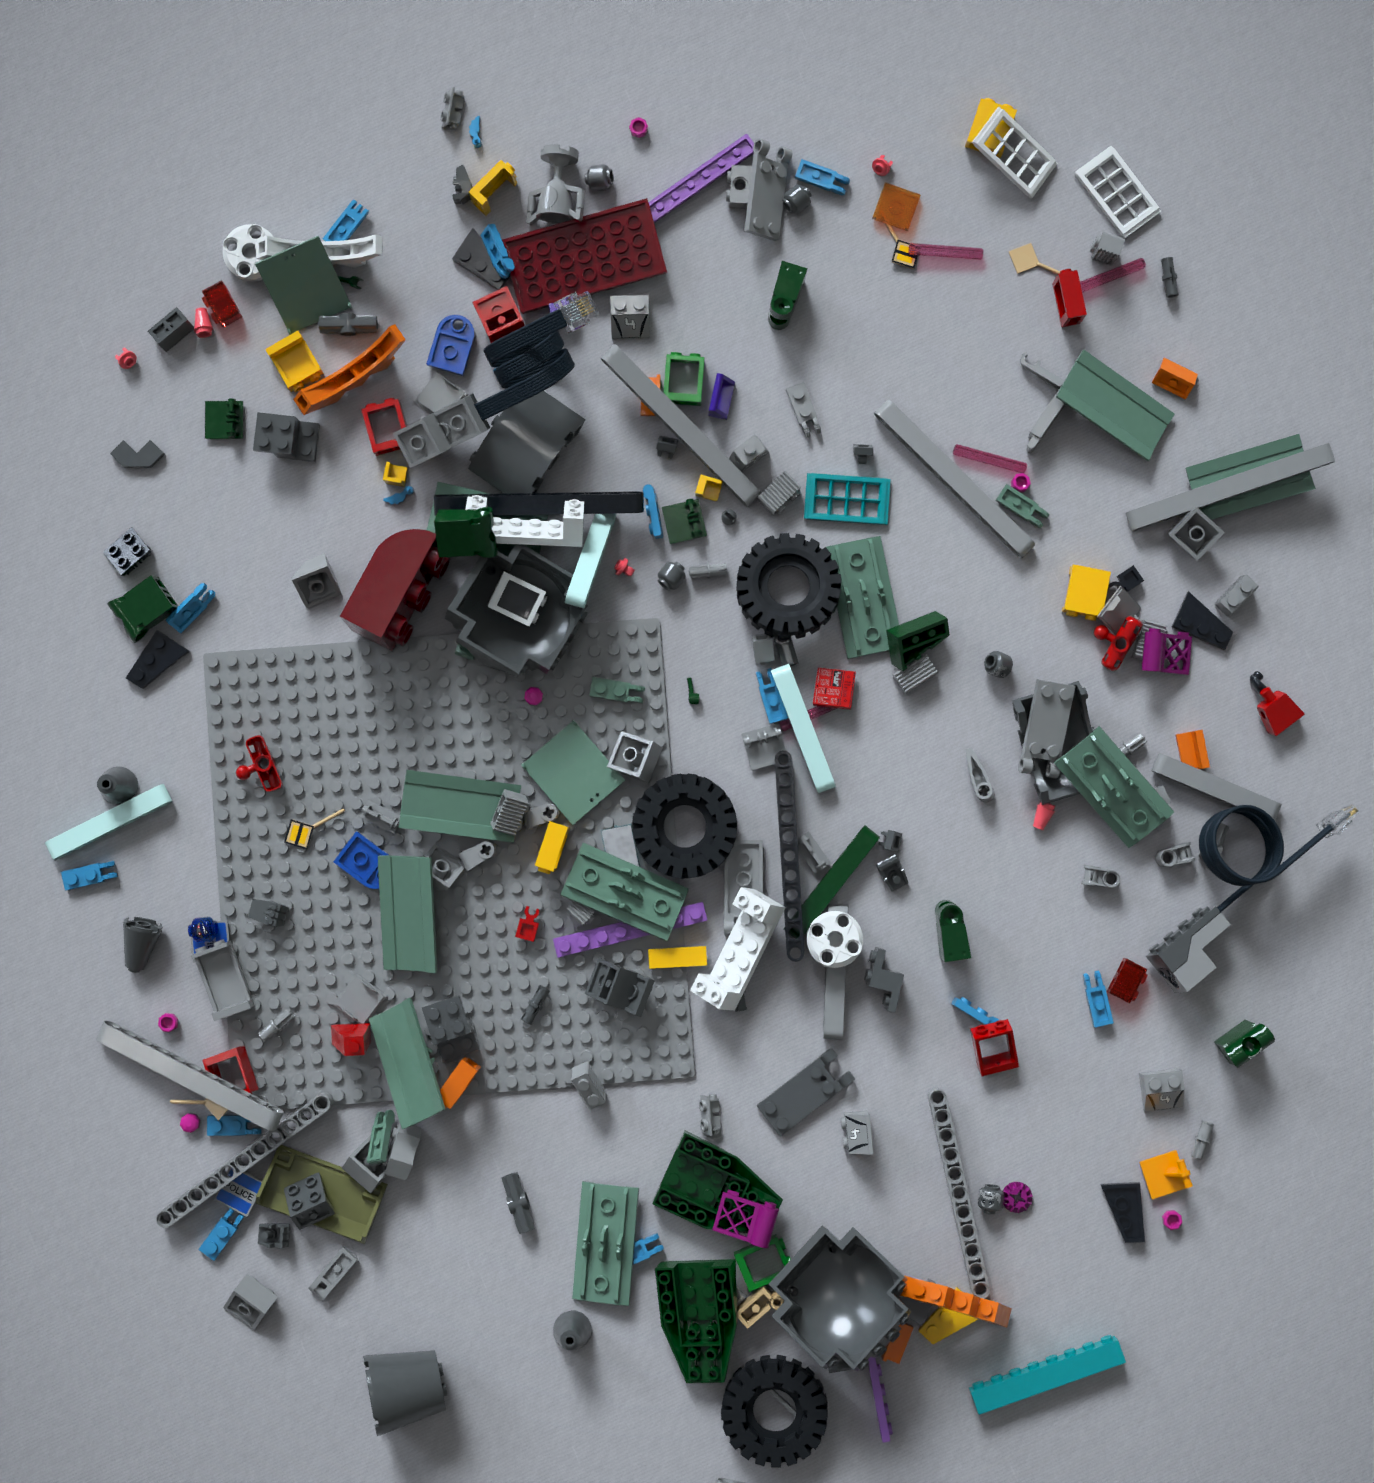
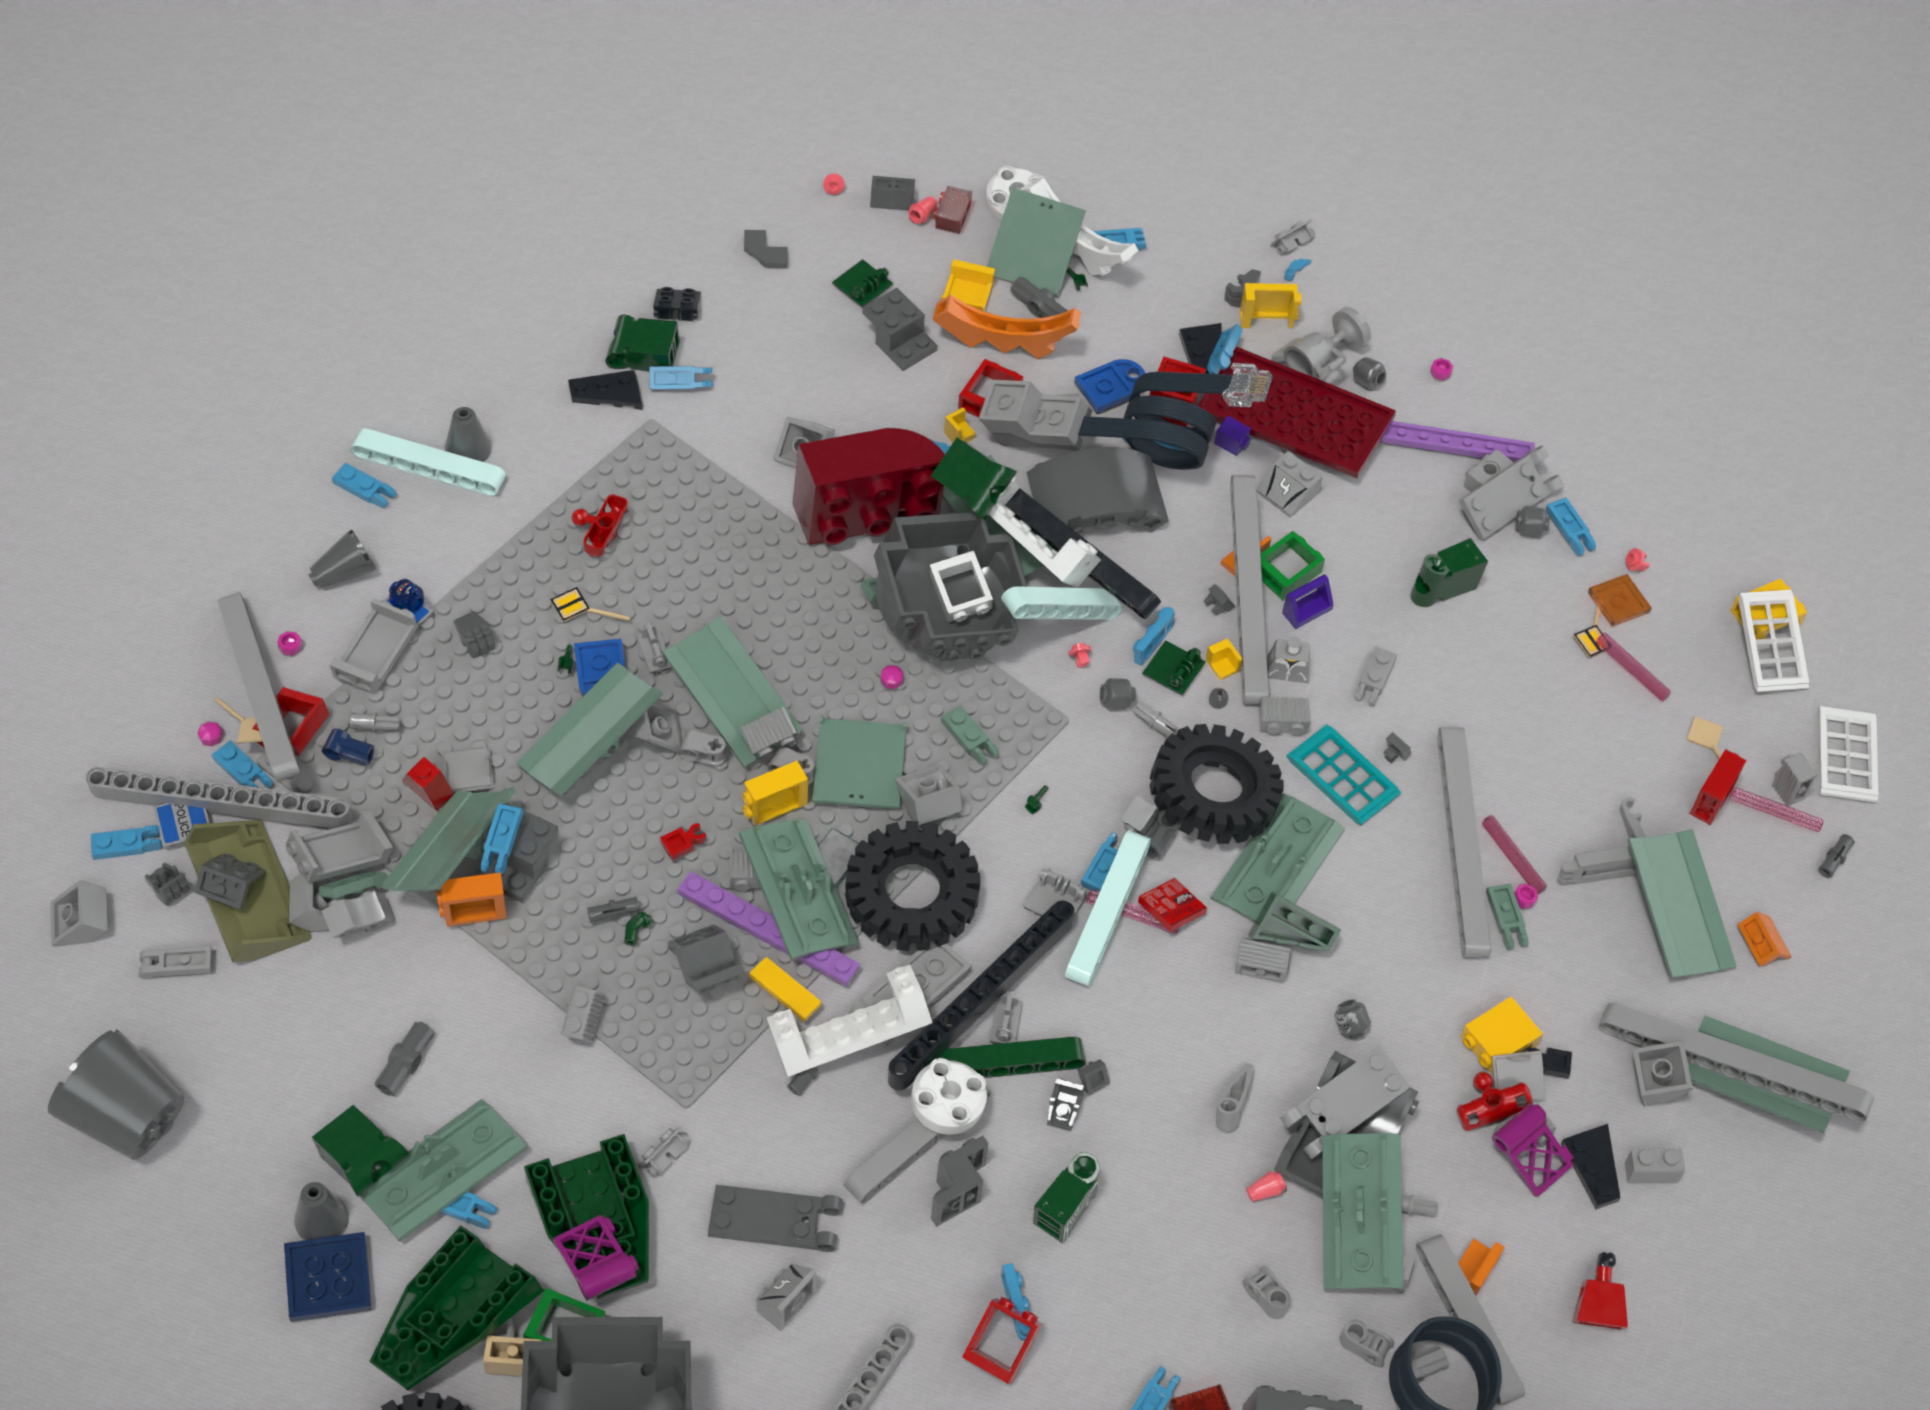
camera: 35 degrees right, 30 degrees down
(277, 1059) = (341, 745): none -> dark blue piece
(338, 875) = (566, 661): none -> dark green hand
(350, 1128) = (340, 849): none -> light grey panel
(439, 1038) = (501, 837): none -> dark azure hinge
(556, 1002) = (632, 926): none -> dark green arm
(556, 1282) = (358, 1149): none -> dark green piece
(612, 1358) = (327, 1276): none -> dark blue plate

